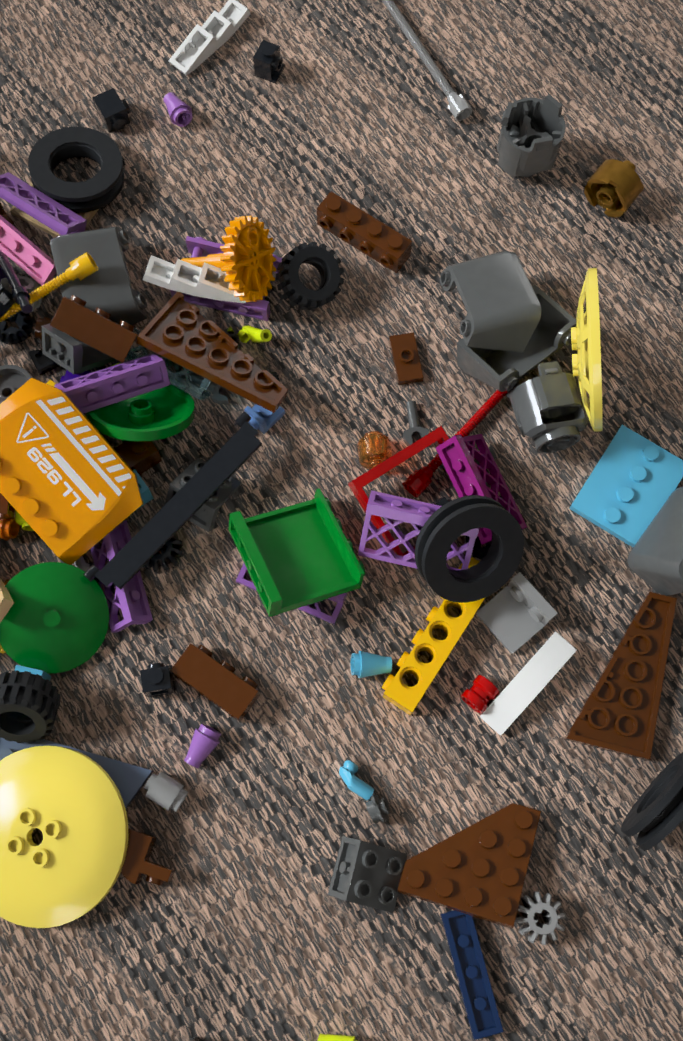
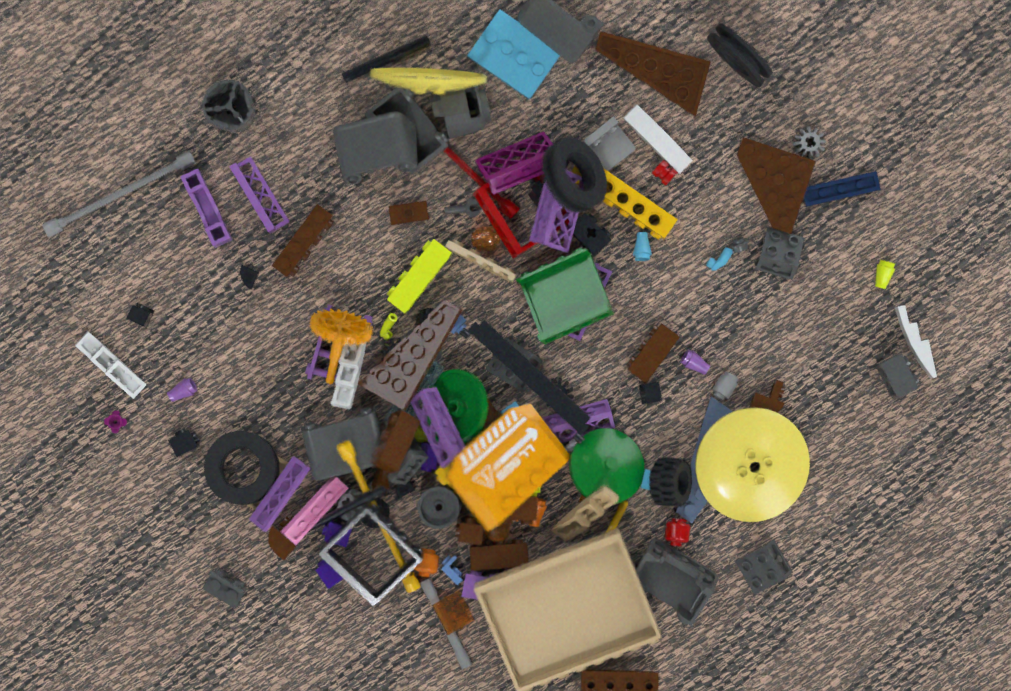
camera: 85 degrees left, 15 degrees up
(143, 39) = (110, 421): none -> magenta plate
(318, 179) = (248, 276): none -> black tile
(321, 368) = (419, 276): none -> neon yellow brick
(326, 477) = (487, 264): none -> tan wing
(327, 268) = (352, 271): black tyre -> none
(371, 596) = (592, 244): none -> black brick
(416, 177) = (256, 203): none -> medium lavender fence
(426, 115) = (206, 207): none -> medium lavender arch
(613, 337) = (386, 58): none -> black axle
(614, 187) = (270, 43): pearl gold brick -> none

